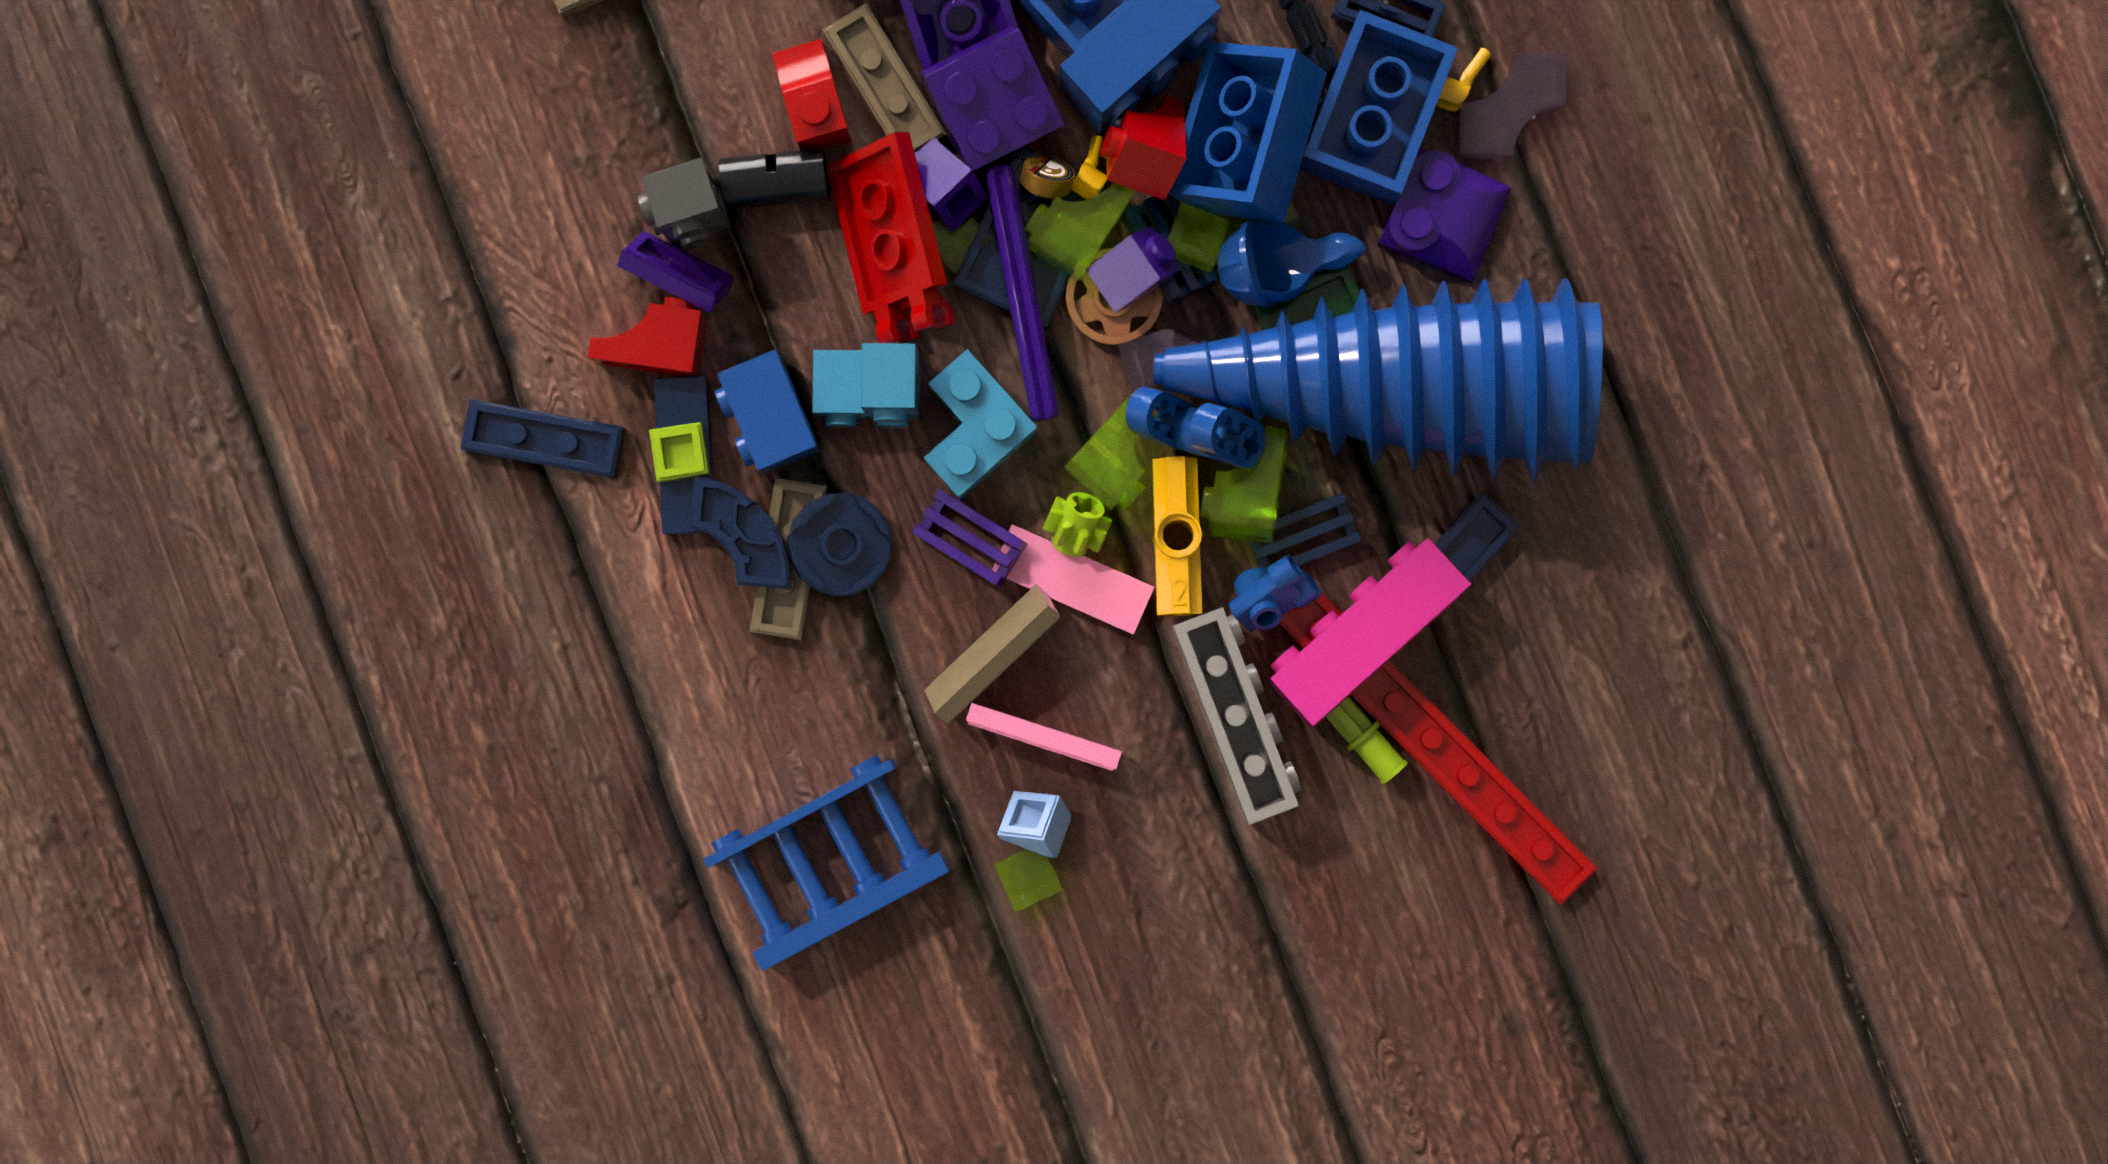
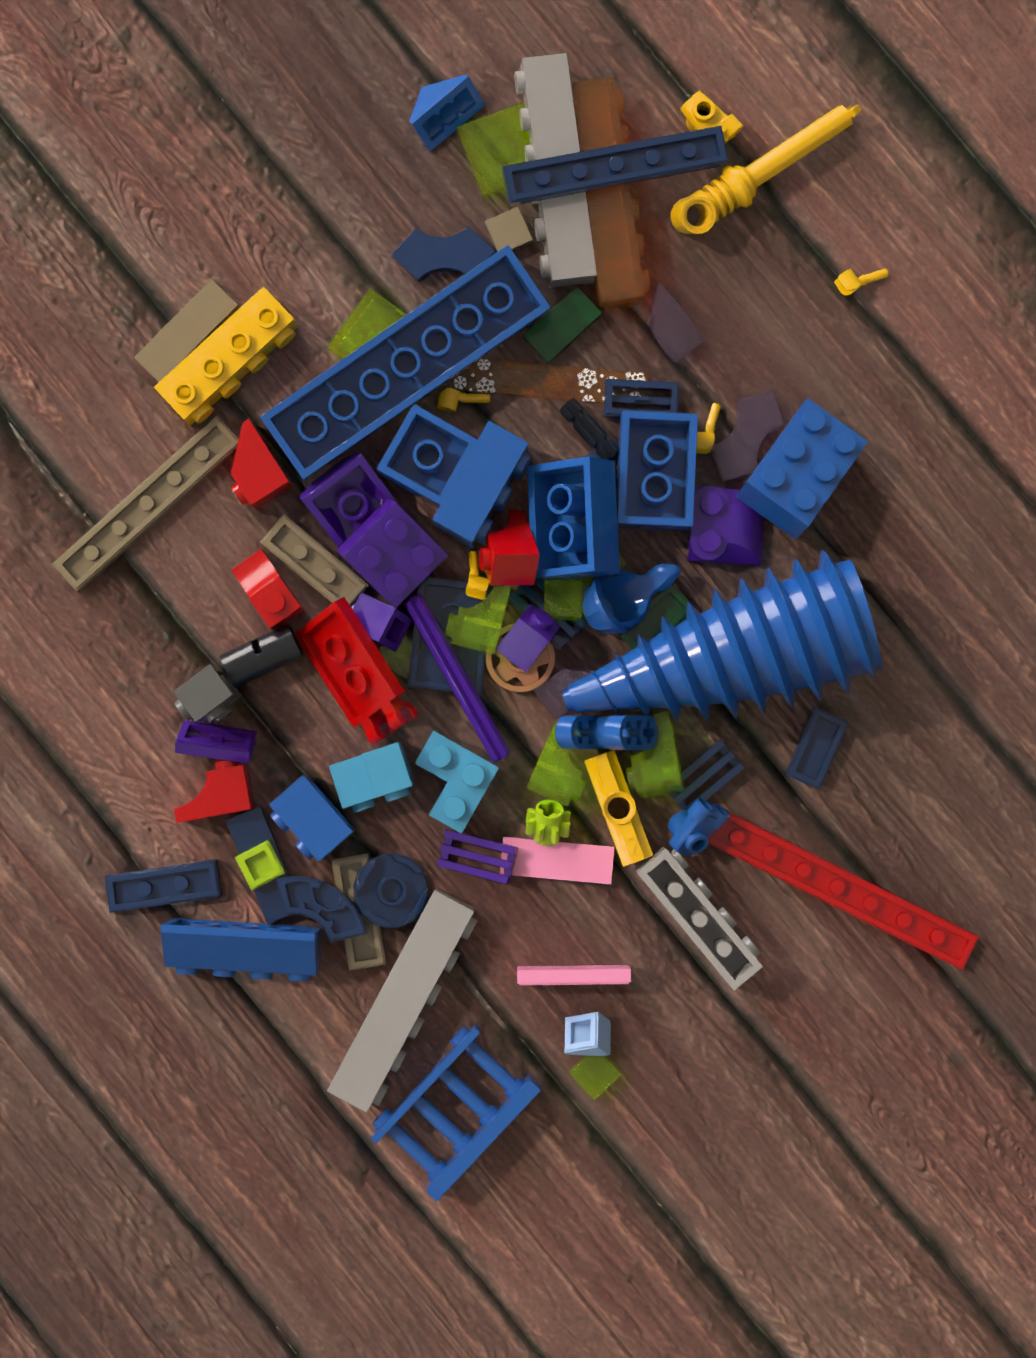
camera: 20 degrees left, 0 degrees up
(619, 552) = (242, 947): none -> blue slope
(805, 692) = (402, 999): none -> light grey brick
(992, 654) = (519, 931): dark tan tile -> none
(1047, 176) = (448, 593): tile -> none
(1366, 740) = (789, 900): lime axle -> none
(1369, 632) = (771, 830): dark pink brick -> none
(1570, 168) = (802, 469): none -> blue brick

